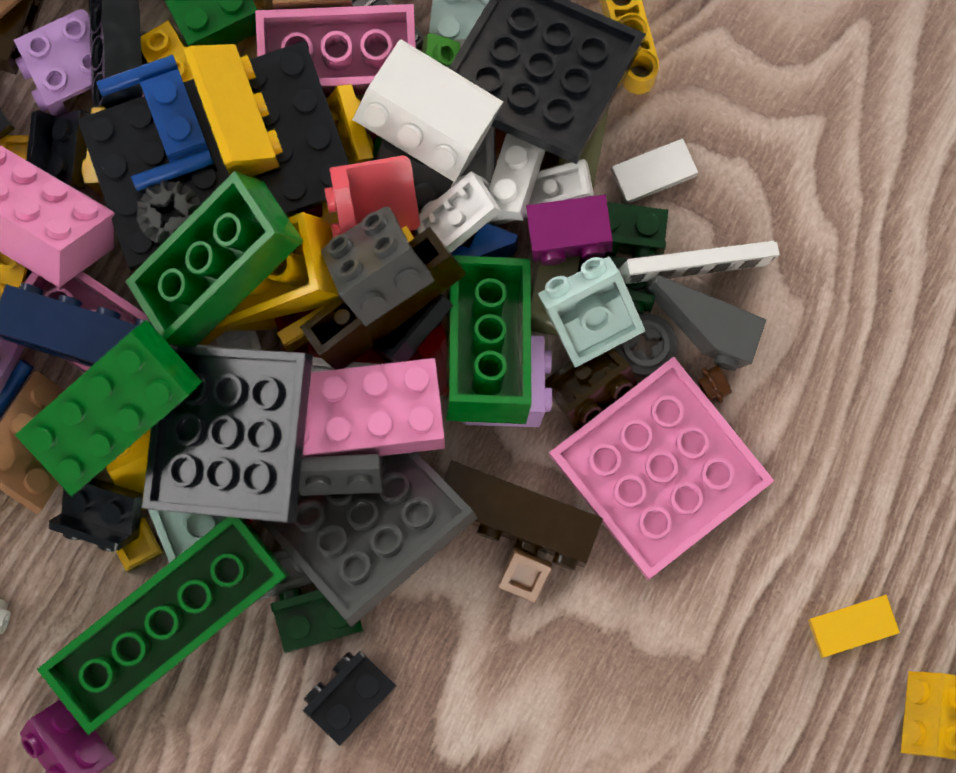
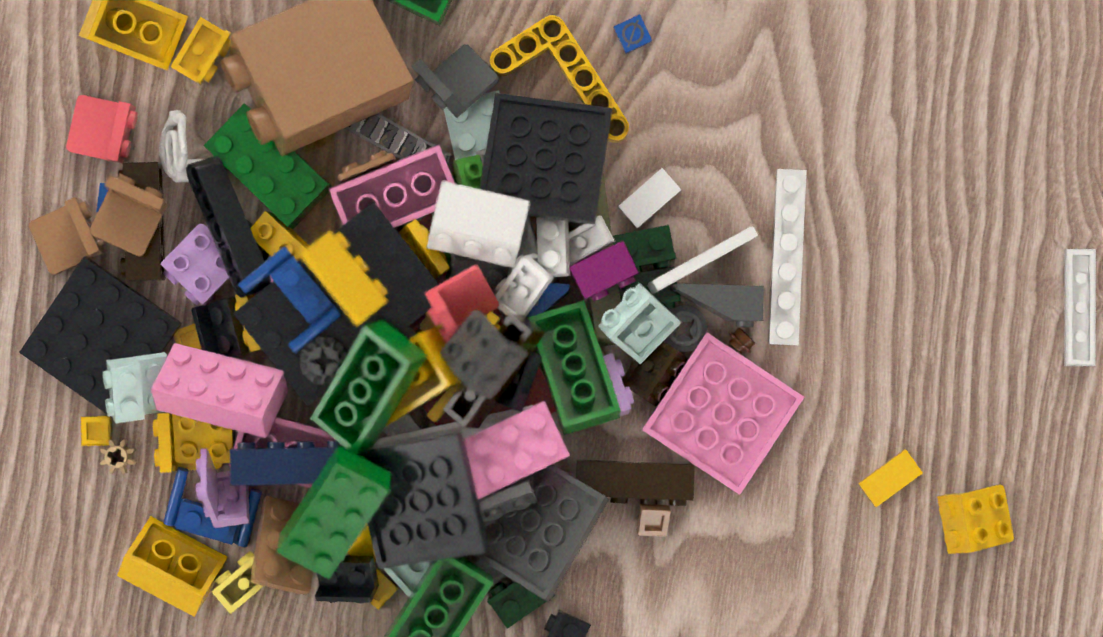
camera: 15 degrees left, 10 degrees up
(805, 302) = (787, 257): none -> white plate

